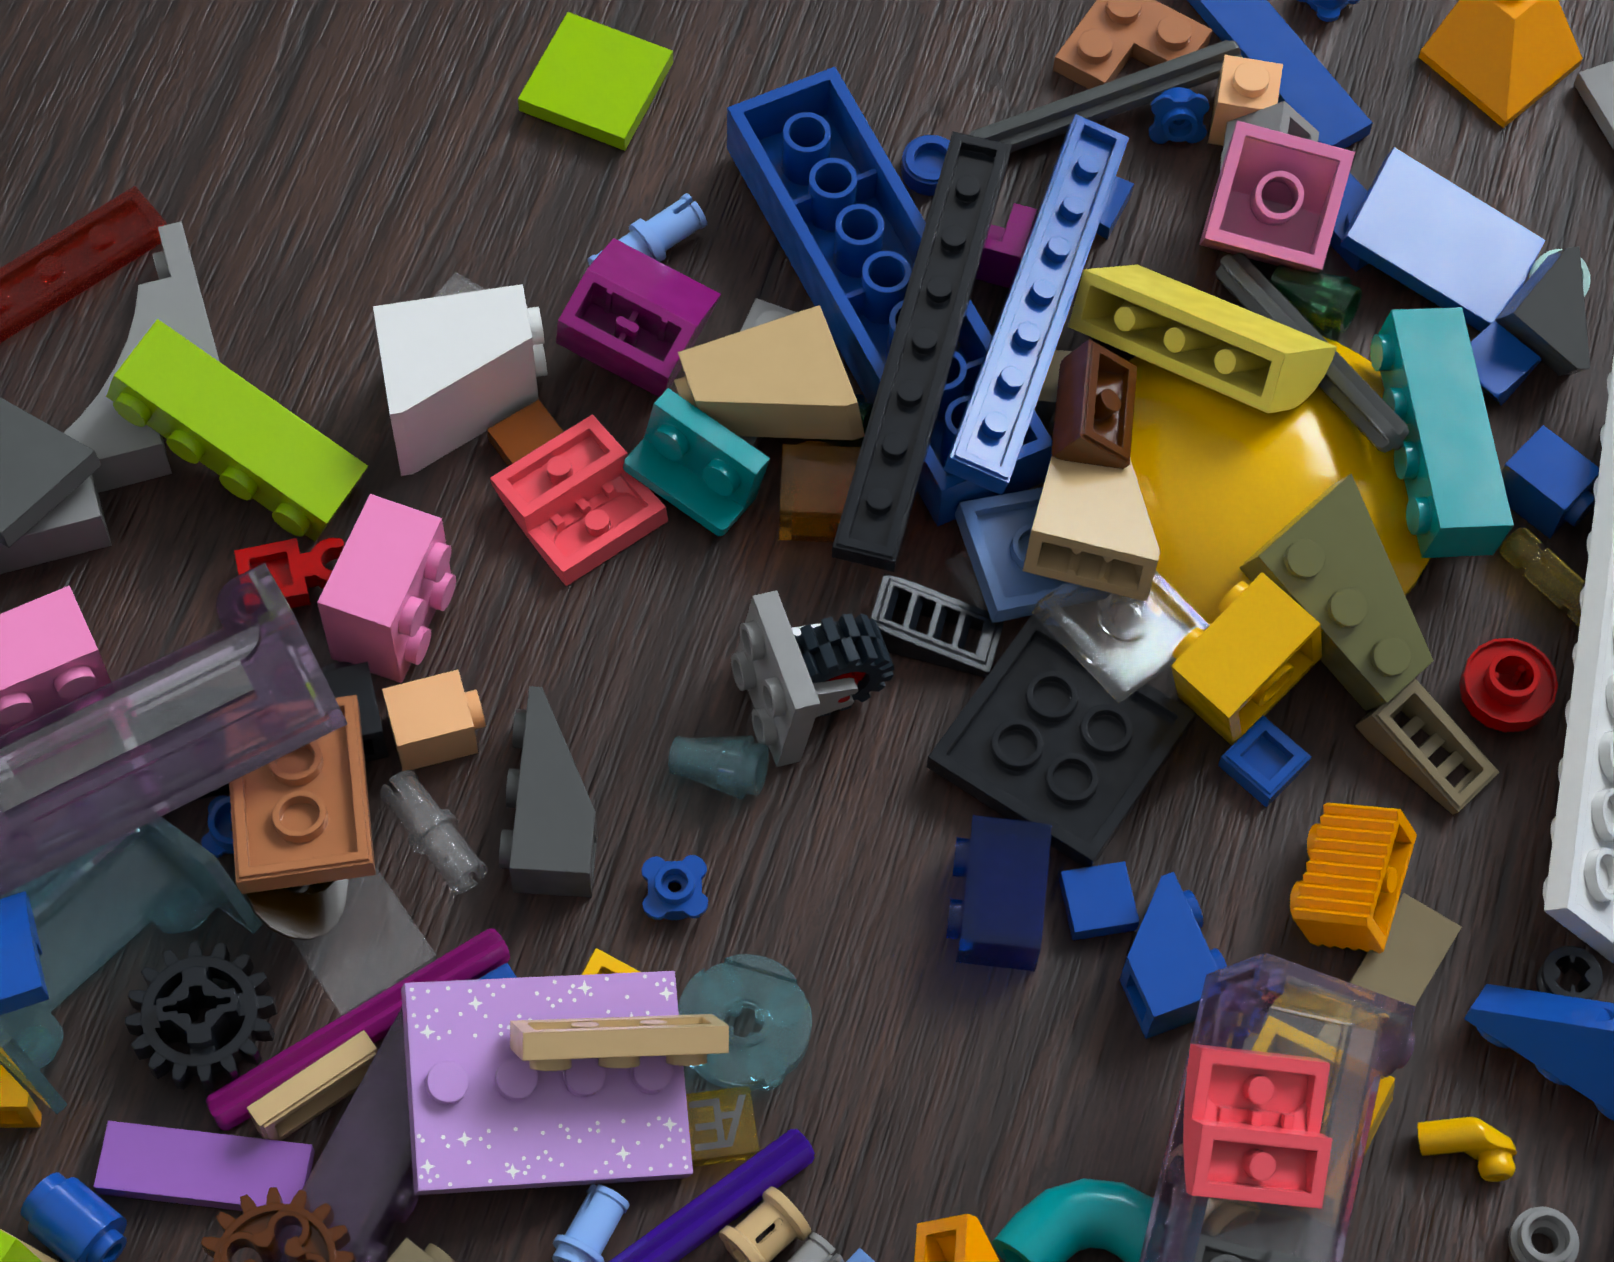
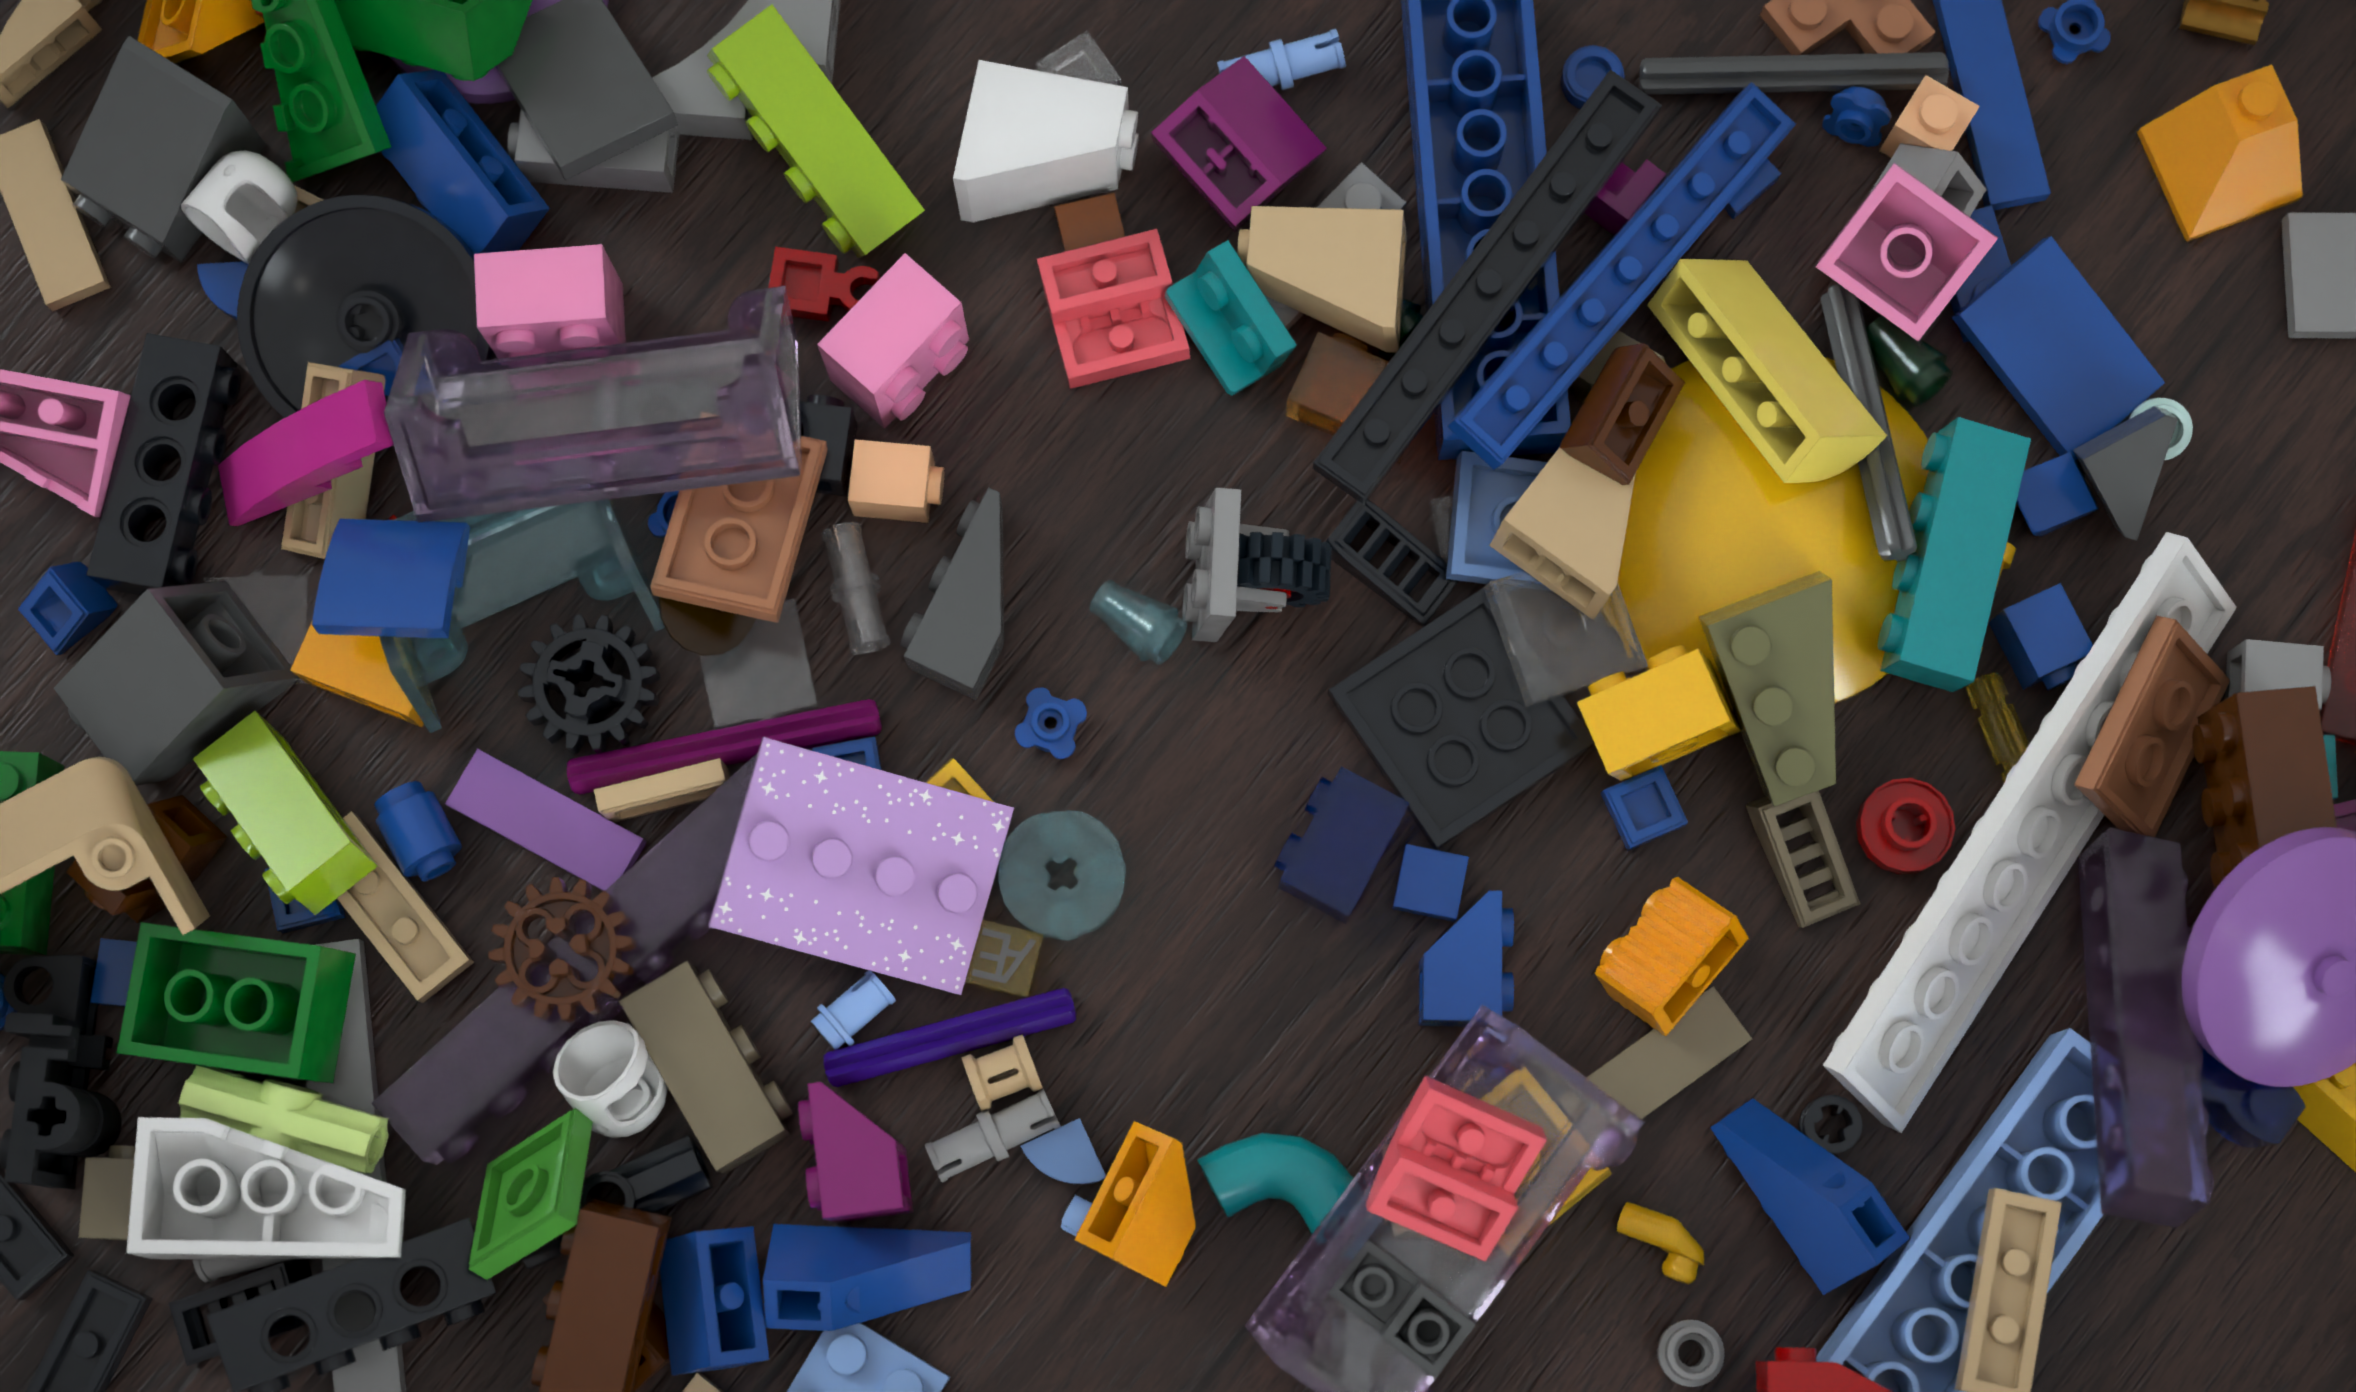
camera: 25 degrees right, 15 degrees up
(618, 1040) = (932, 859): tan plate -> none

